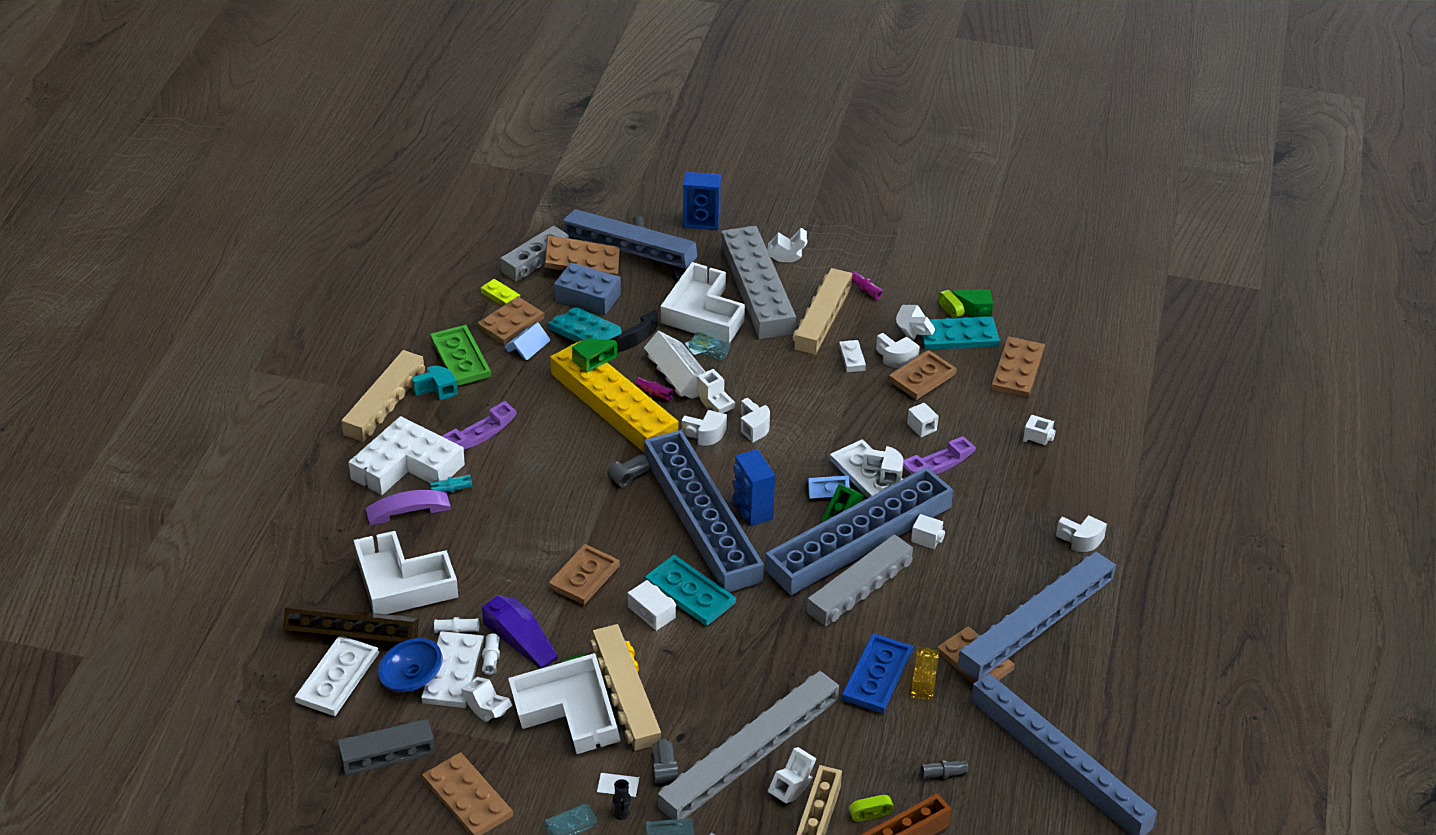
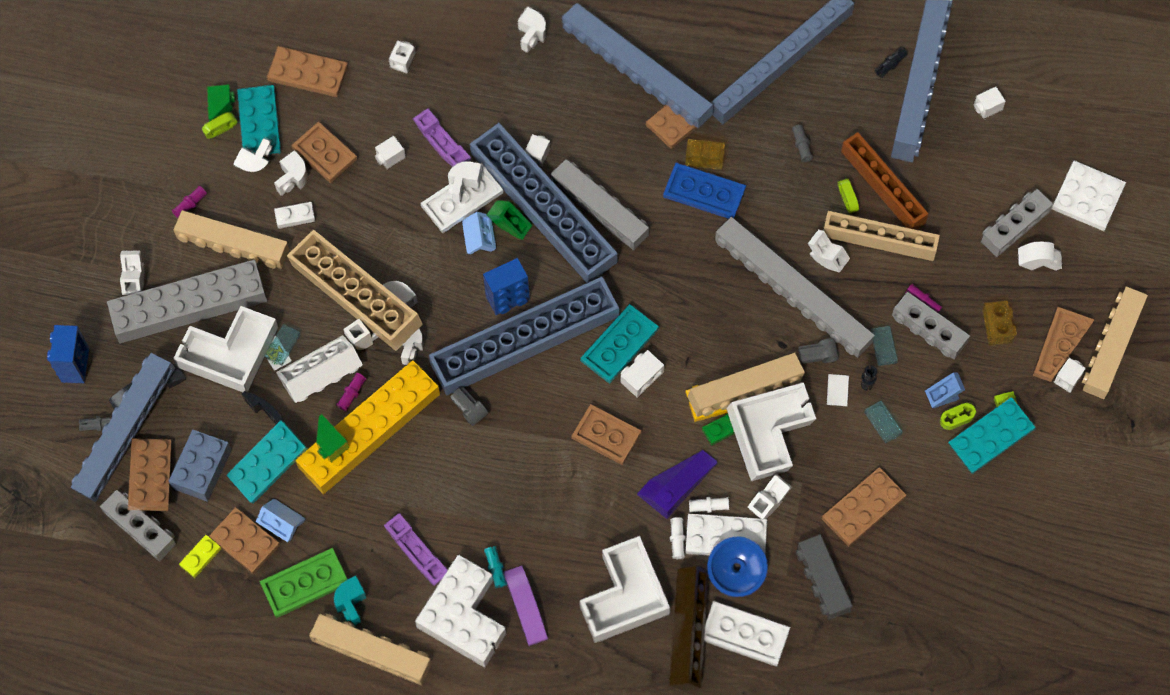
camera: 90 degrees left, 25 degrees up
(756, 380) = (355, 290): none -> tan brick

